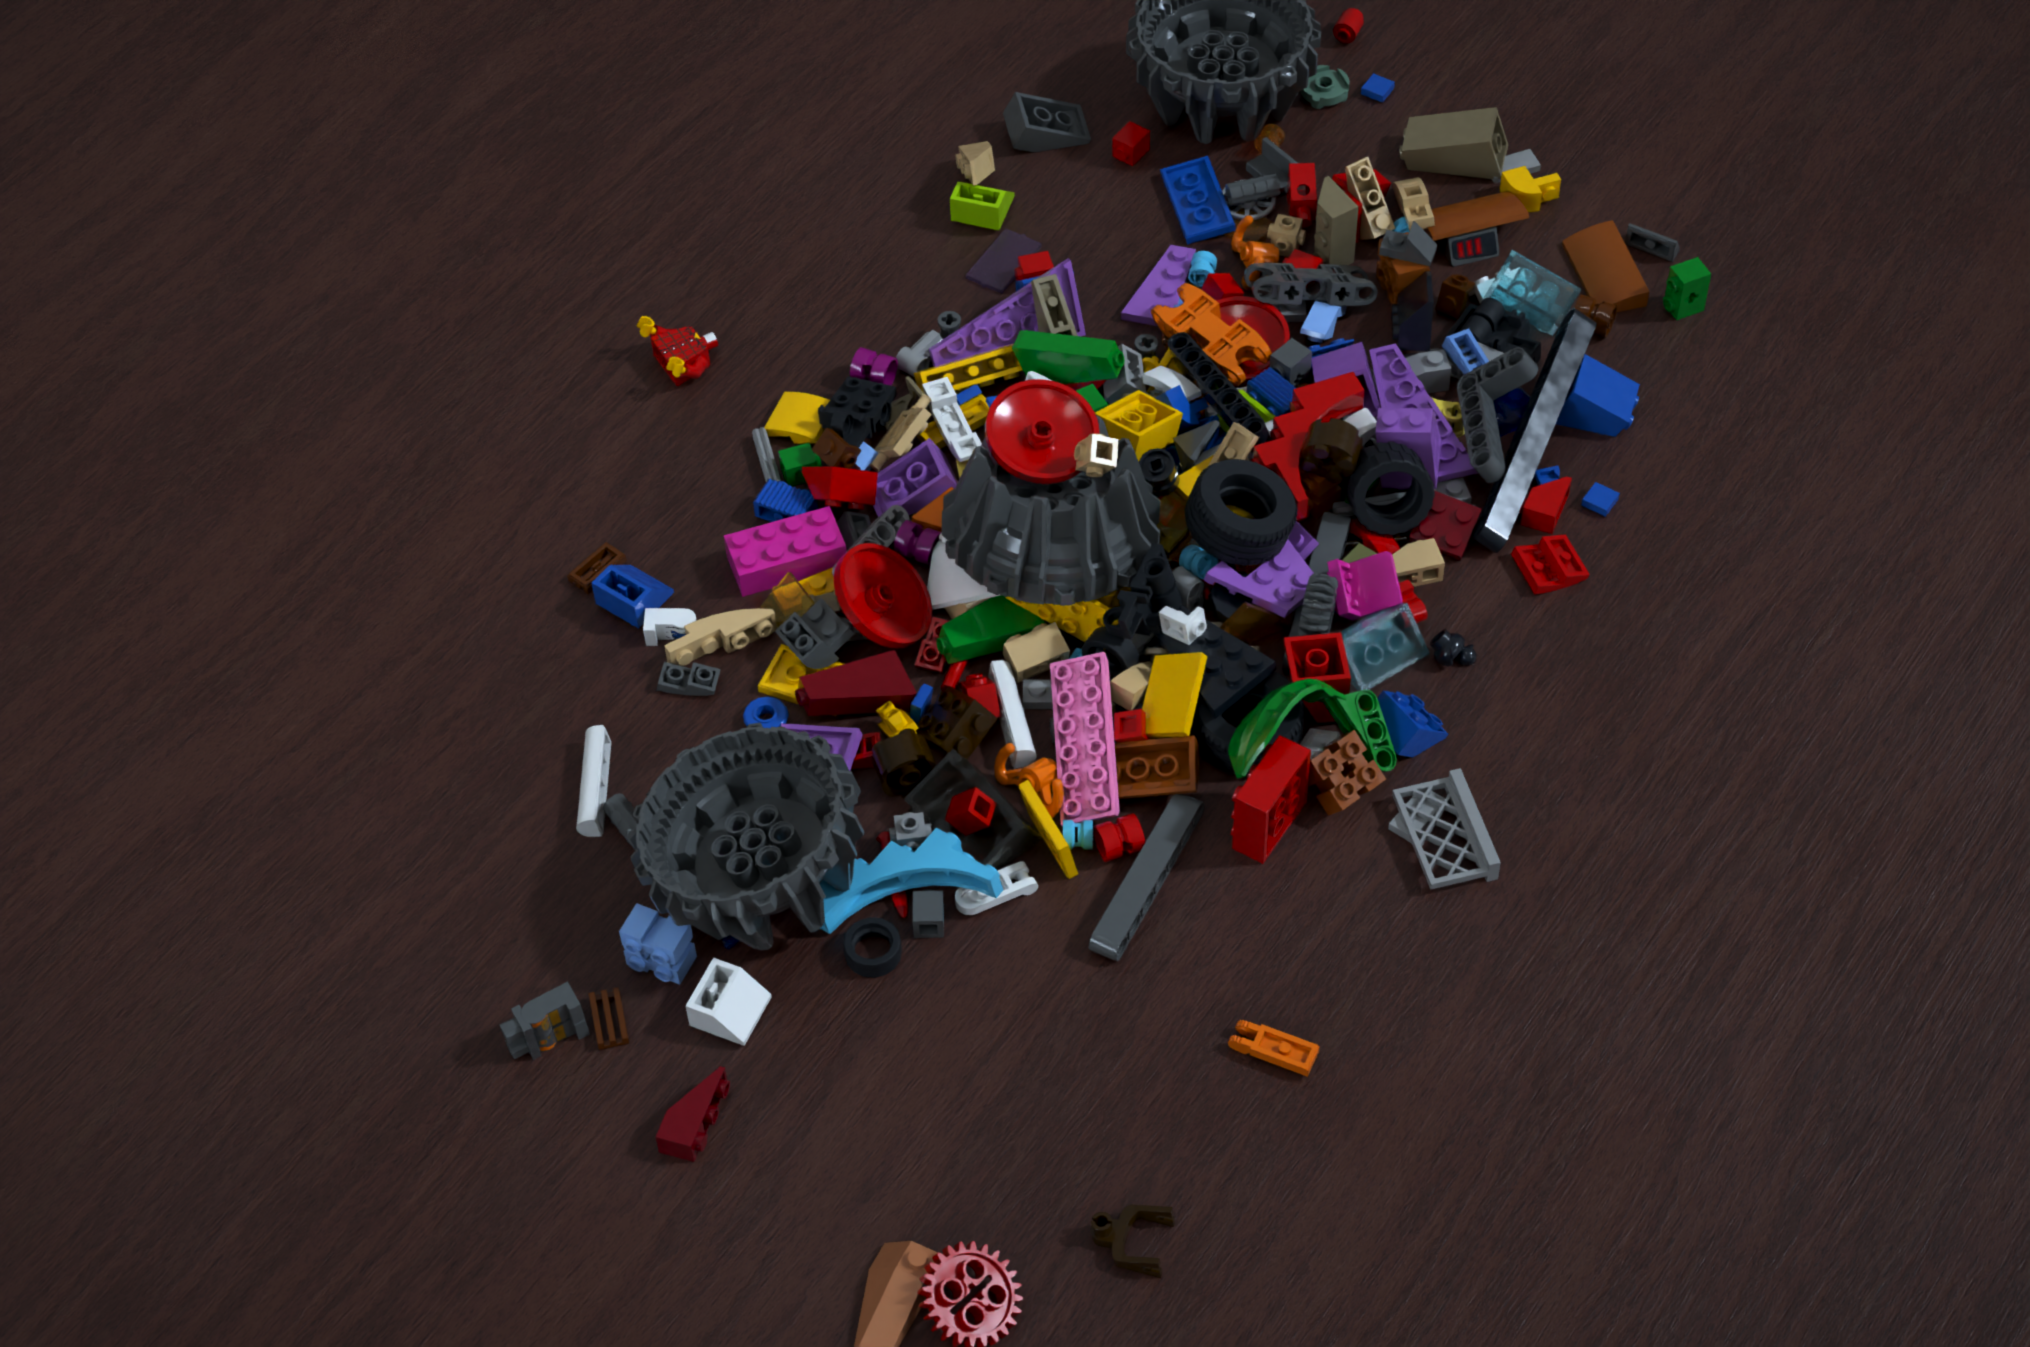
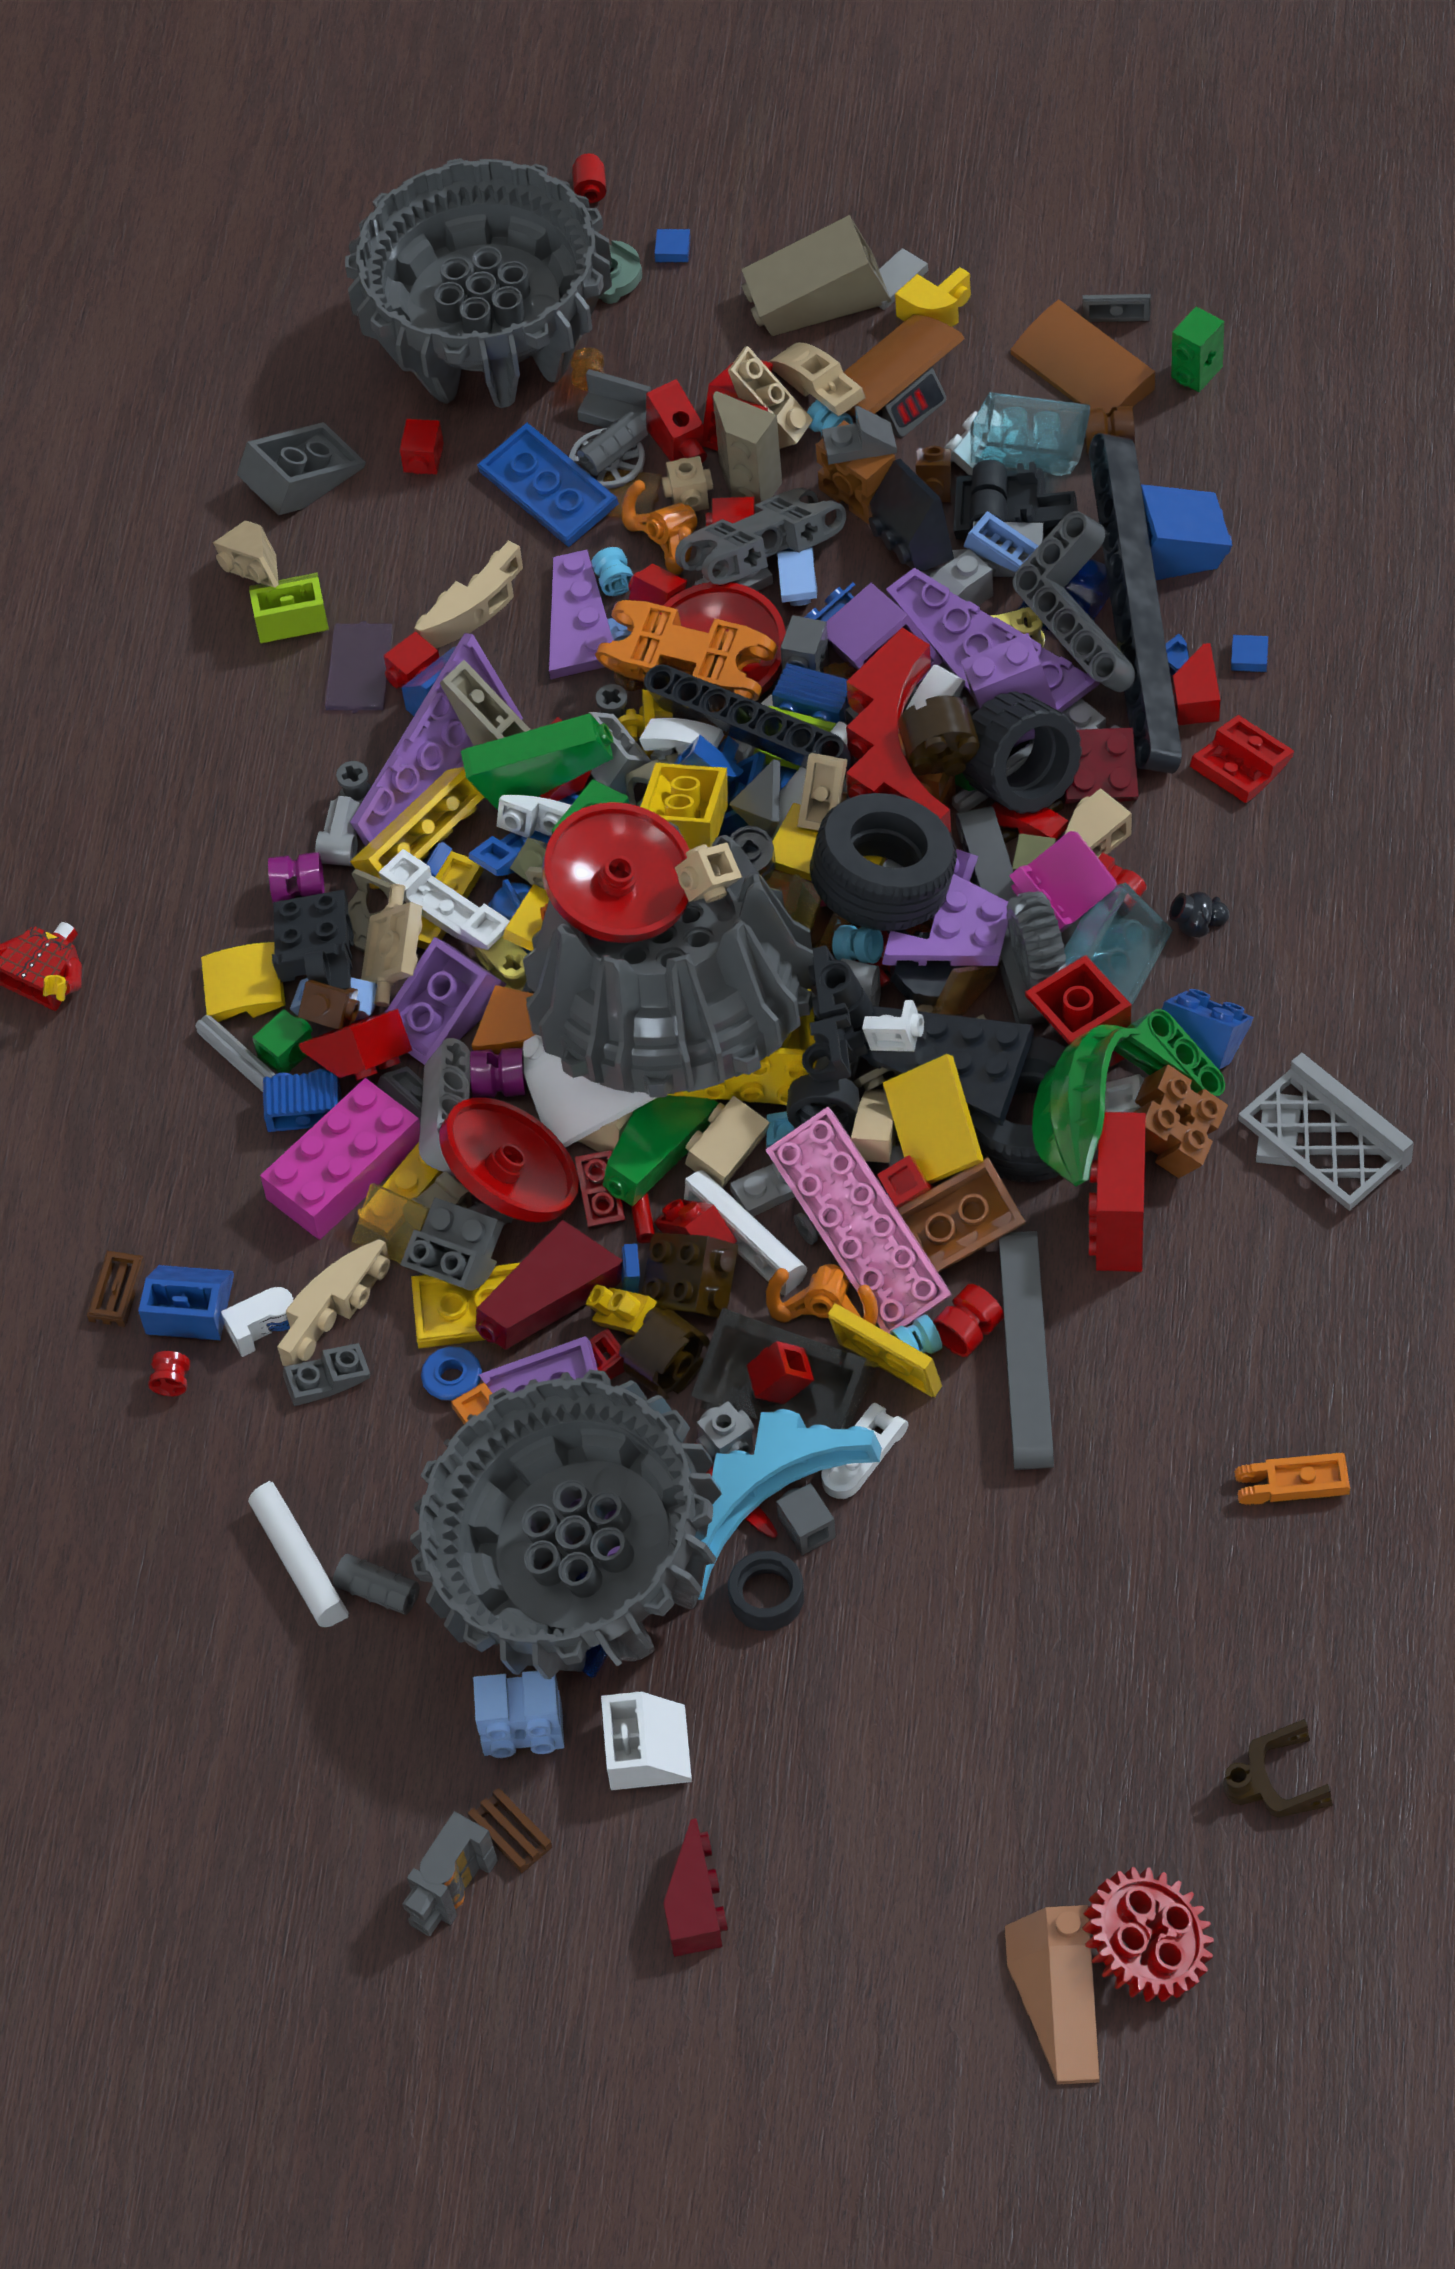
camera: 25 degrees left, 5 degrees up
(591, 632) = (169, 1373): none -> red wheel
(1097, 252) = (467, 608): none -> tan slope

